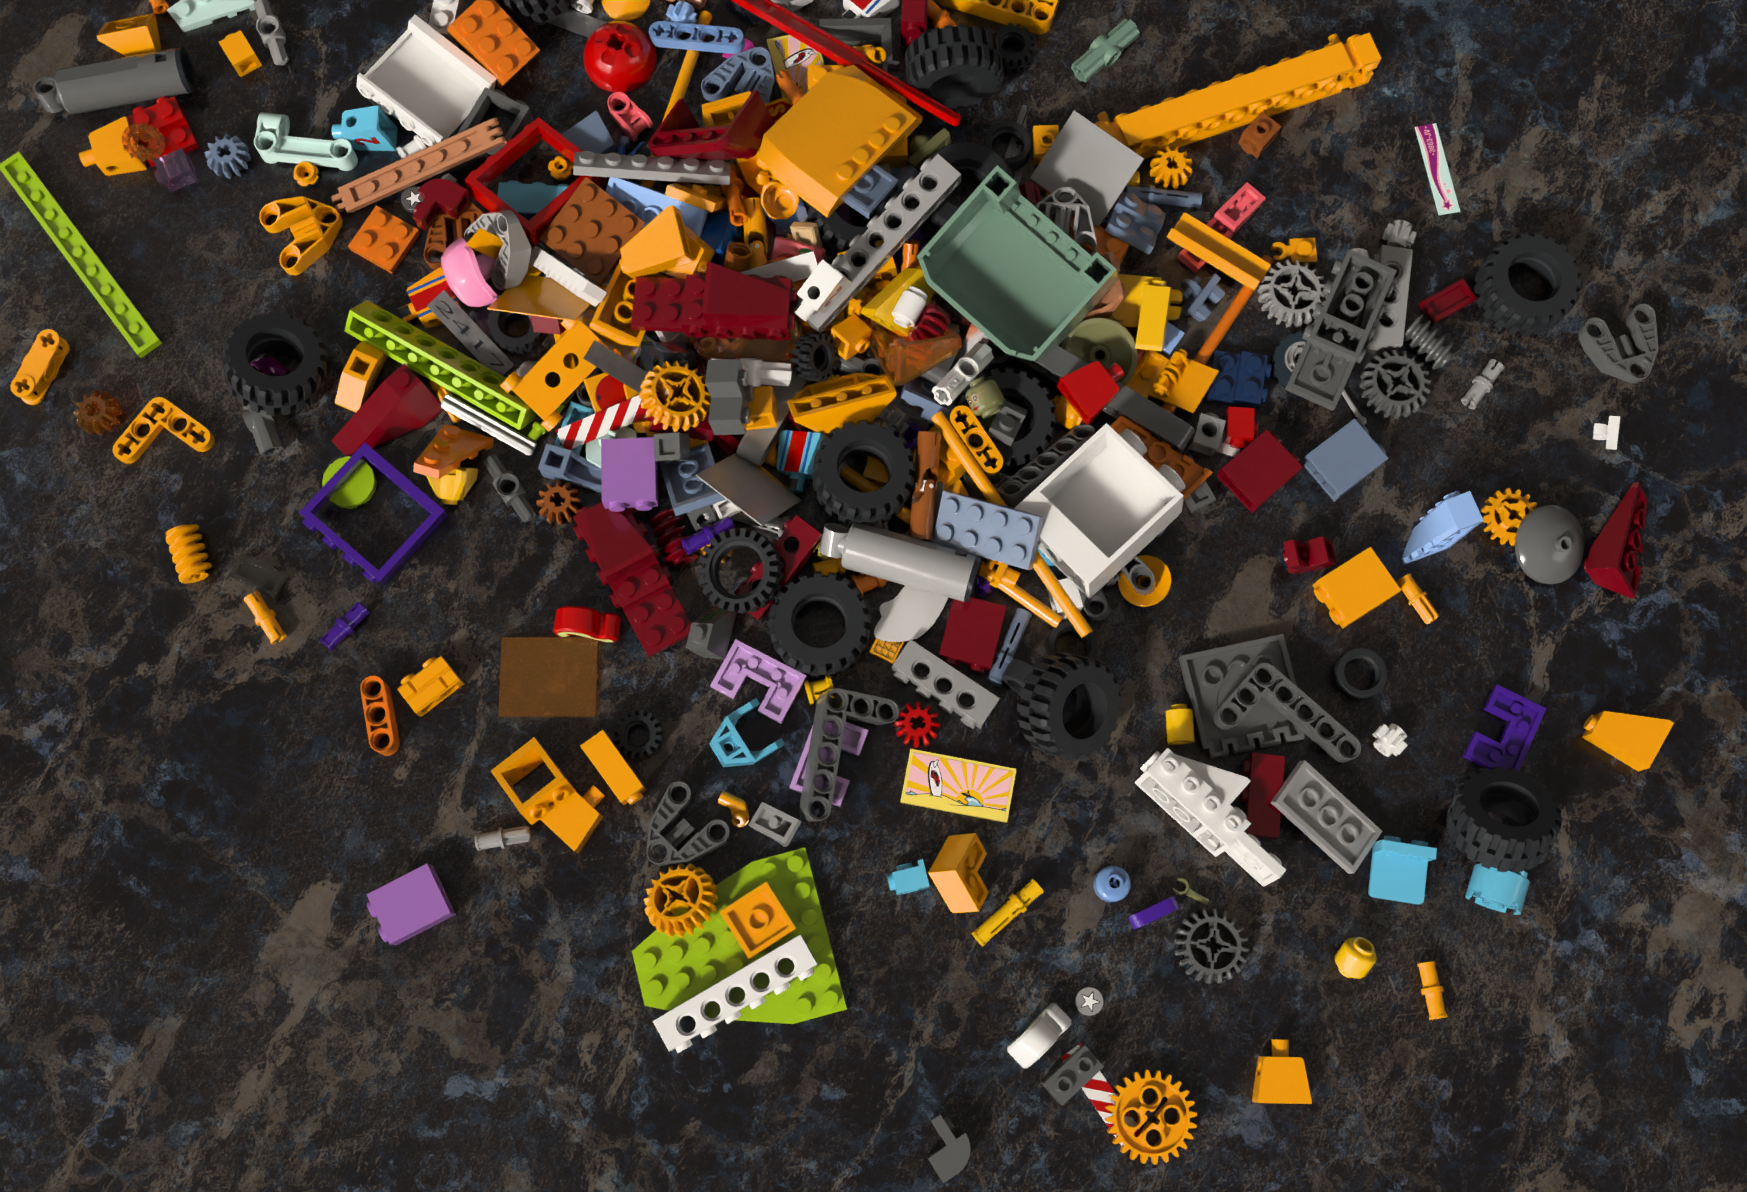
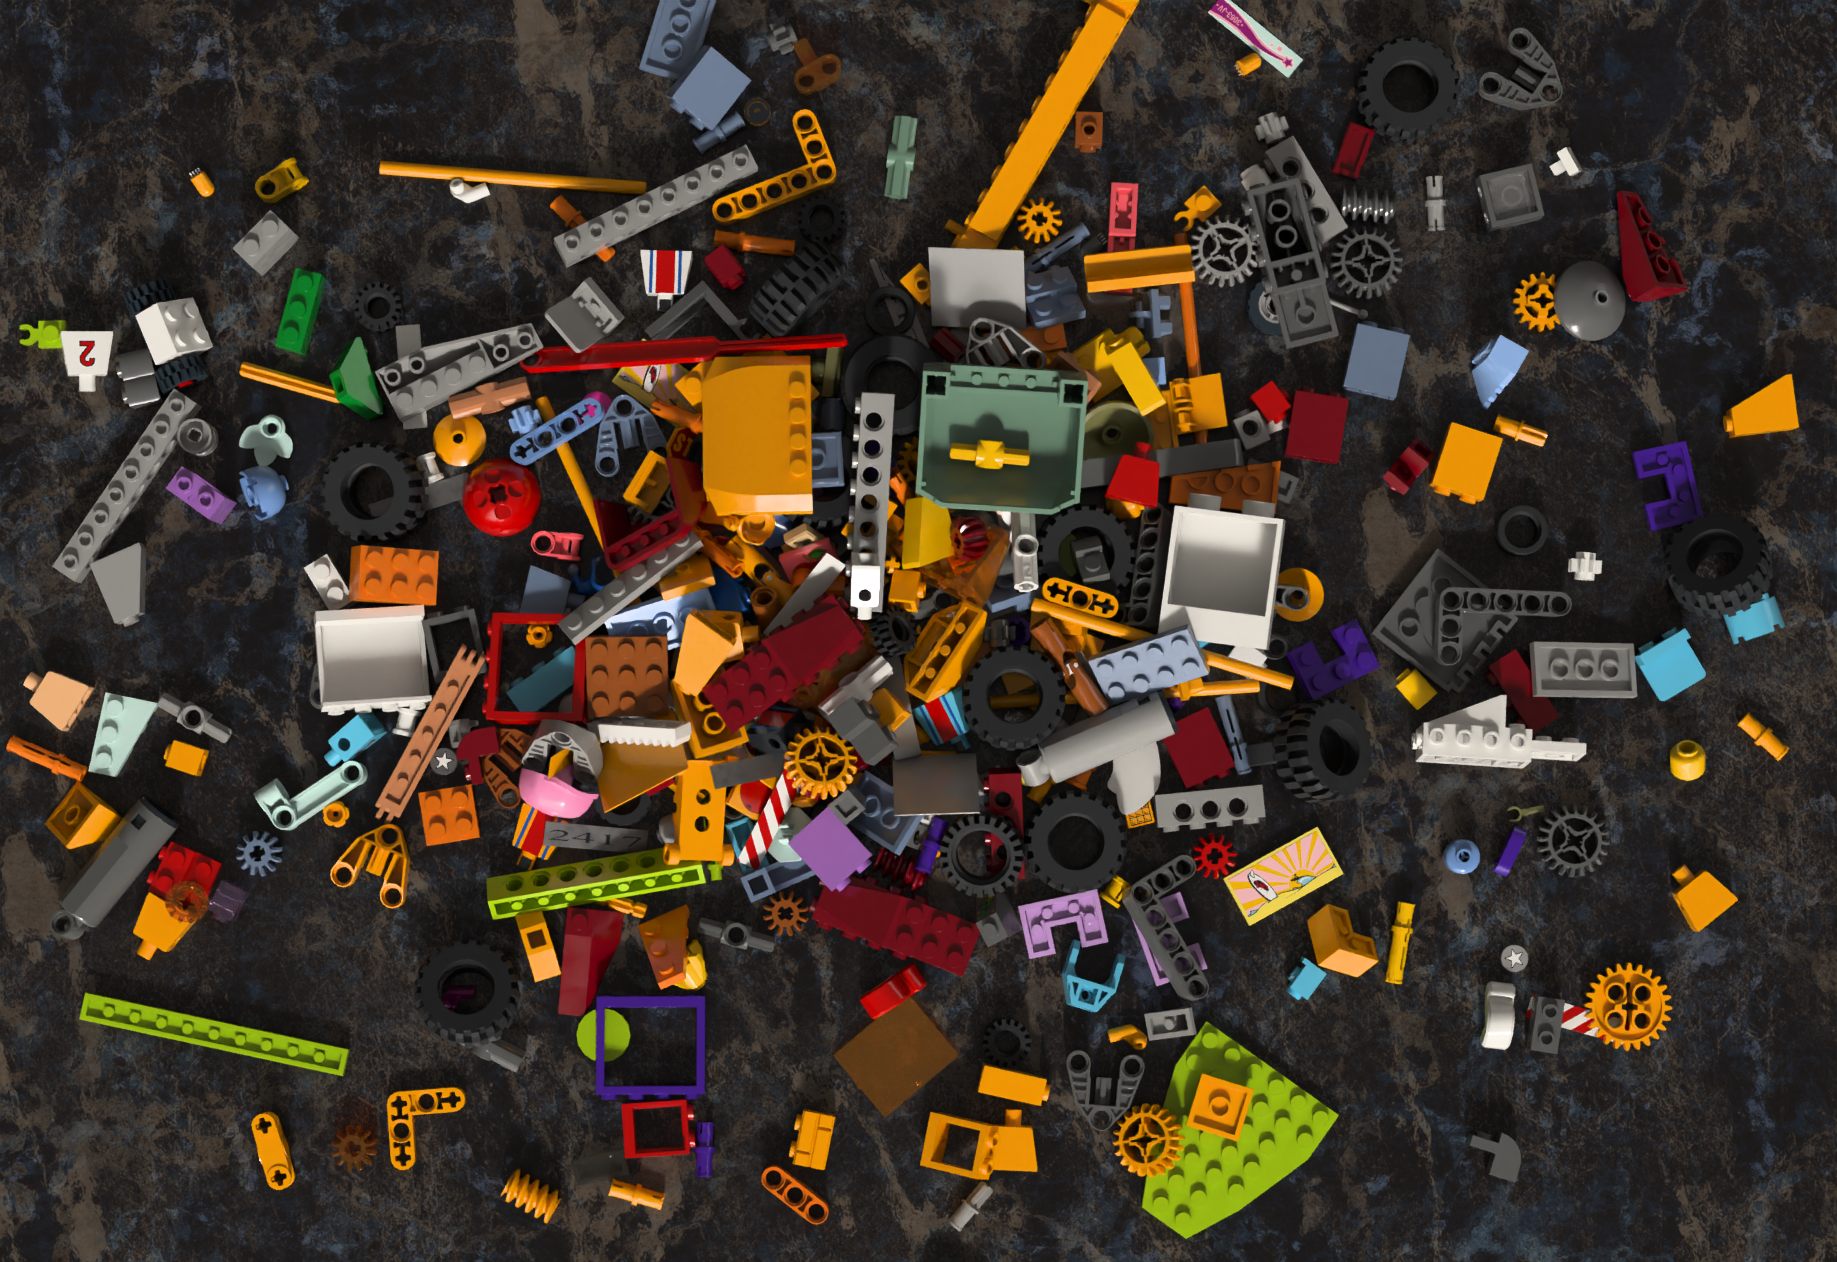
camera: 35 degrees left, 10 degrees up
(306, 562) = (629, 1128): none -> red window
(488, 424) = (675, 897): axle -> none
(670, 1023) = (1236, 1242): white brick -> none
(872, 53) = (711, 328): light orange pin -> none
(909, 307) = (942, 537): white brick -> none
(984, 397) = (1060, 559): olive head -> none
(996, 282) = (989, 454): none -> yellow axle
(1146, 667) = (1322, 678): none -> dark purple plate
(1239, 379) = (1238, 360): dark blue plate -> none
(1416, 182) = (1248, 63): none -> light orange piece
(1546, 421) = (1509, 197): none -> piece

